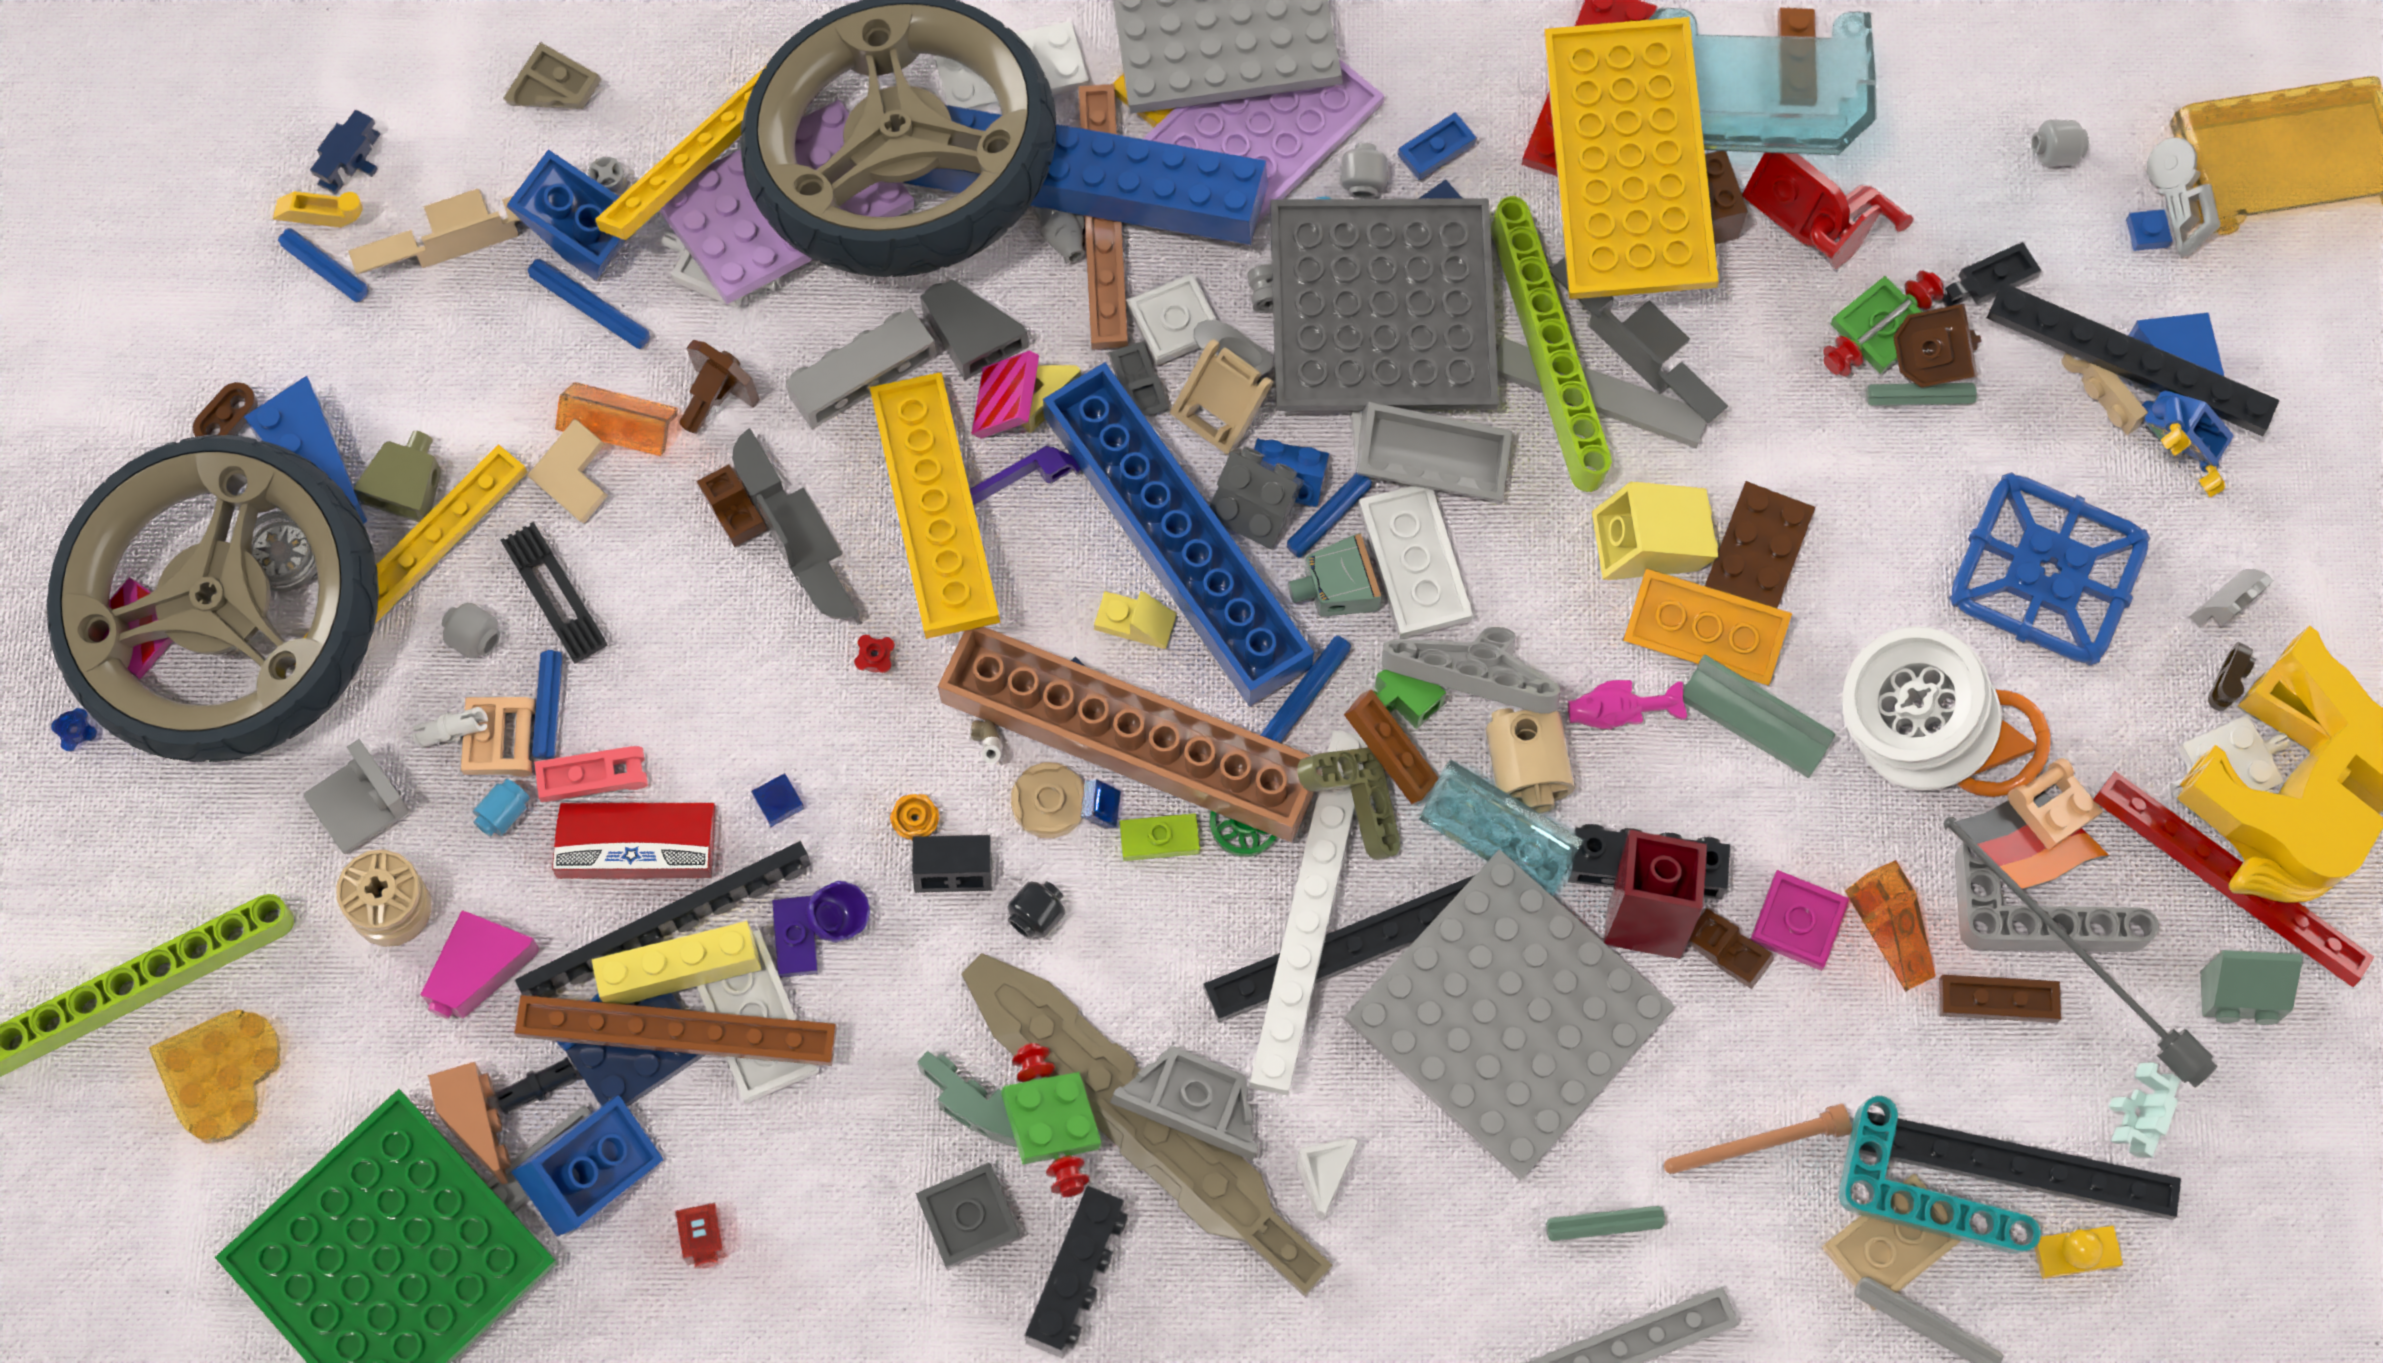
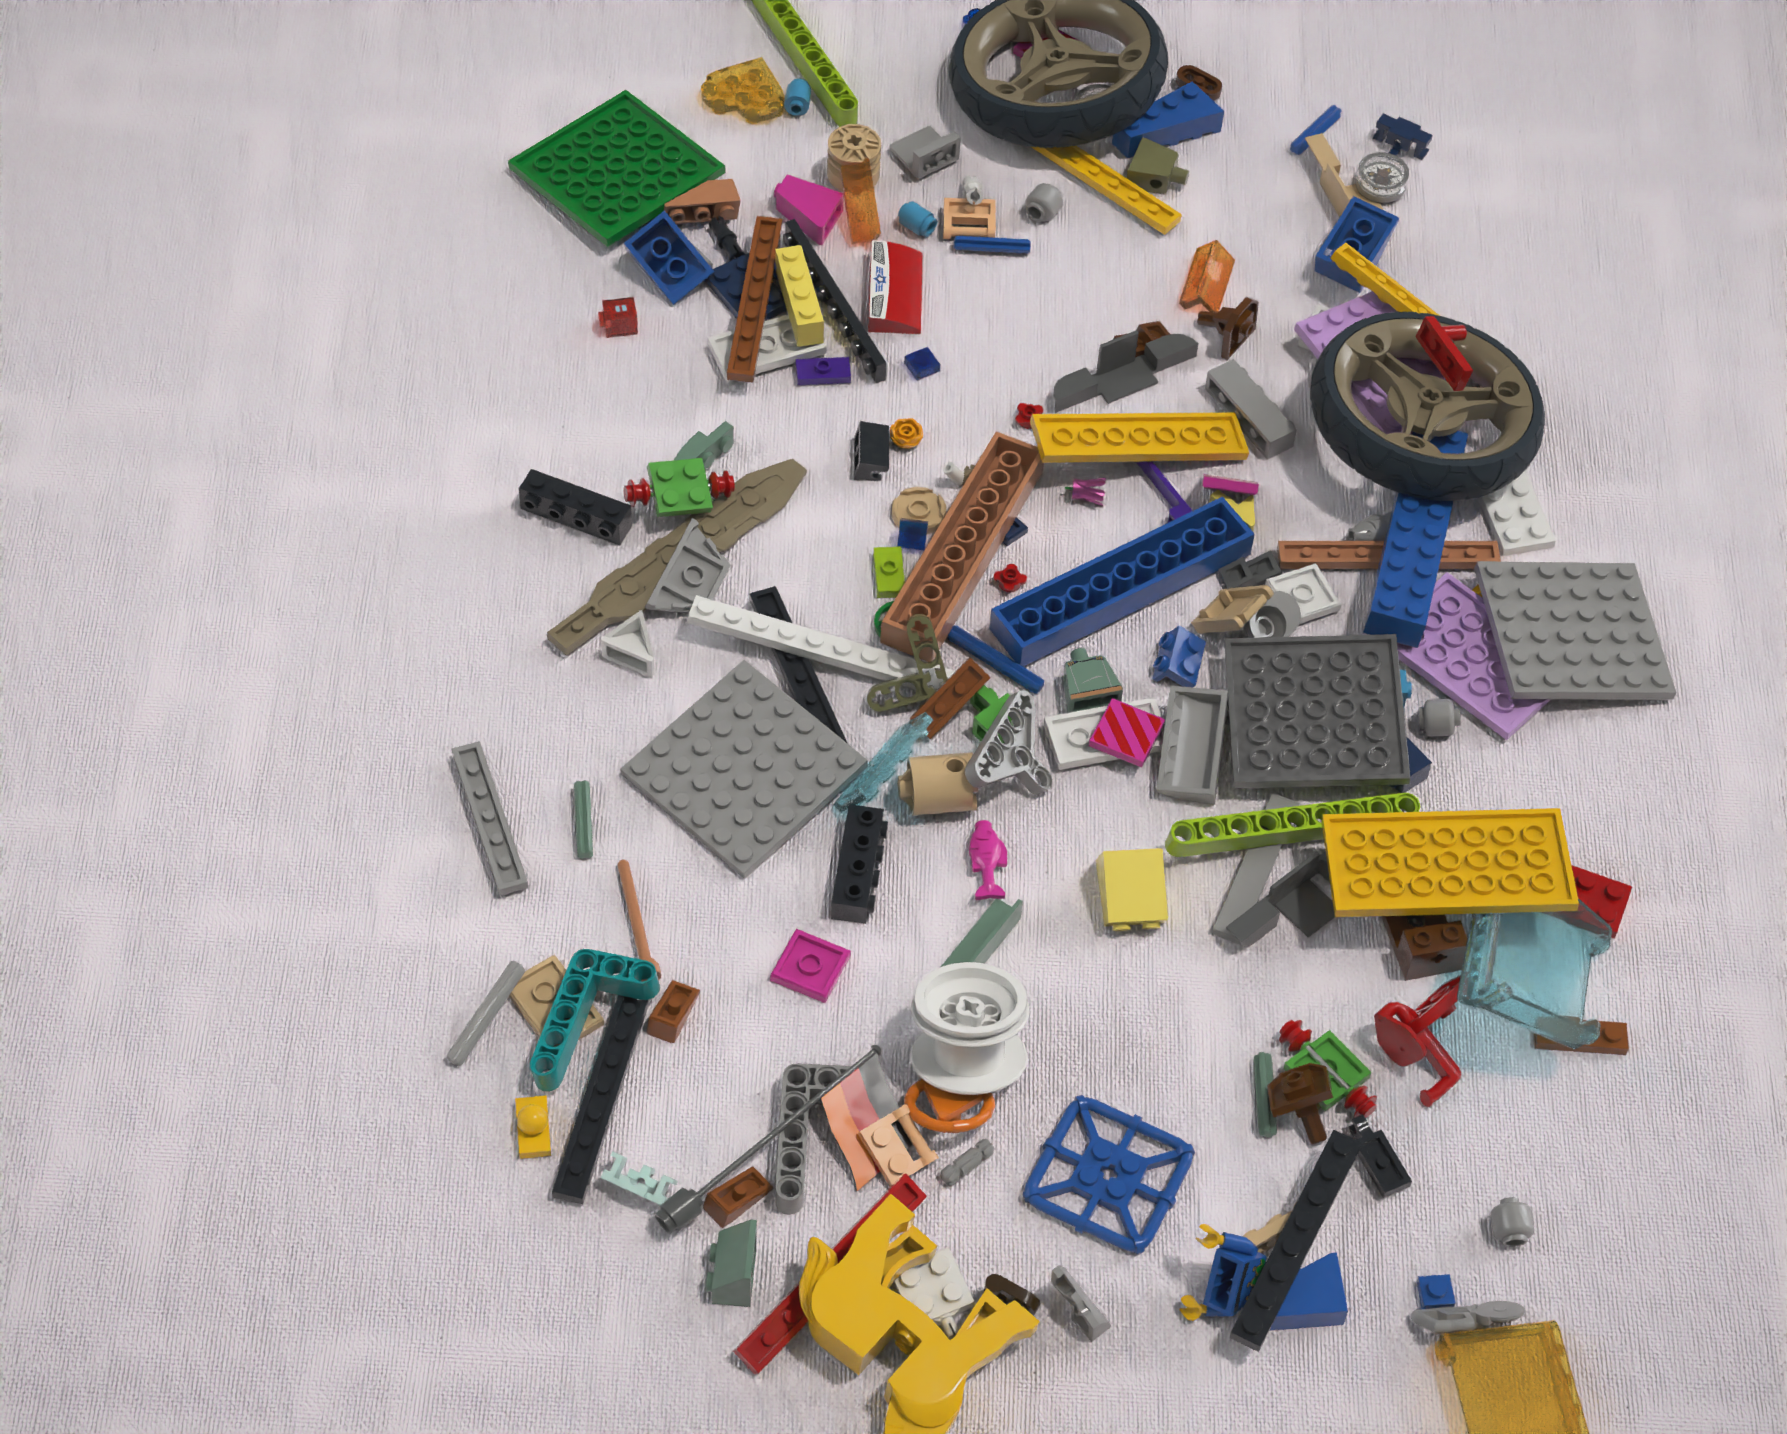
camera: 90 degrees right, 15 degrees down
(237, 990) = (797, 97): none -> dark azure brick
(318, 209) = (1357, 125): yellow piece -> none
(428, 181) = (1382, 177): none -> clear piece
(482, 882) = (860, 202): none -> clear orange panel
(528, 550) = (1104, 233): black container -> none
(552, 82) = (1471, 244): dark tan wing -> none
(562, 467) = (1163, 249): tan tile -> none
(589, 303) = (1294, 266): blue axle -> none
(590, 773) = (941, 264): coral plate -> none
(608, 169) = (1396, 269): light grey wheel -> none
(834, 96) = (1439, 346): none -> red piece
(838, 911) = (836, 385): dark purple hair -> none
(968, 1215) = (619, 454): dark grey plate -> none
(971, 327) = (1285, 470): dark grey slope -> none
(1008, 587) = (1083, 490): none -> flat silver piece
(1036, 909) = (834, 494): black head -> none
(1137, 620) = (1057, 559): light yellow slope -> none
(1165, 668) = (1010, 584): none -> red plate
(1255, 496) = (1153, 628): dark grey plate -> none
(1329, 514) = (1140, 680): blue axle -> none
(1424, 531) = (1126, 732): none -> dark pink tile
(1437, 146) = (1468, 769): blue plate -> none
(1656, 894) = (825, 847): dark red slope -> none
(1701, 621) = (1050, 914): light orange plate -> none
(1728, 949) = (790, 915): reddish brown slope -> none
(1760, 545) = (1113, 962): reddish brown plate -> none
(1870, 1079) = (672, 1011): none -> dark orange slope
(1895, 922) = (799, 1020): clear orange slope -> none
(1999, 998) = (738, 1092): reddish brown plate -> none
(2062, 731) = (967, 1162): none -> light grey axle
(2147, 992) = (736, 1196): none -> dark orange slope

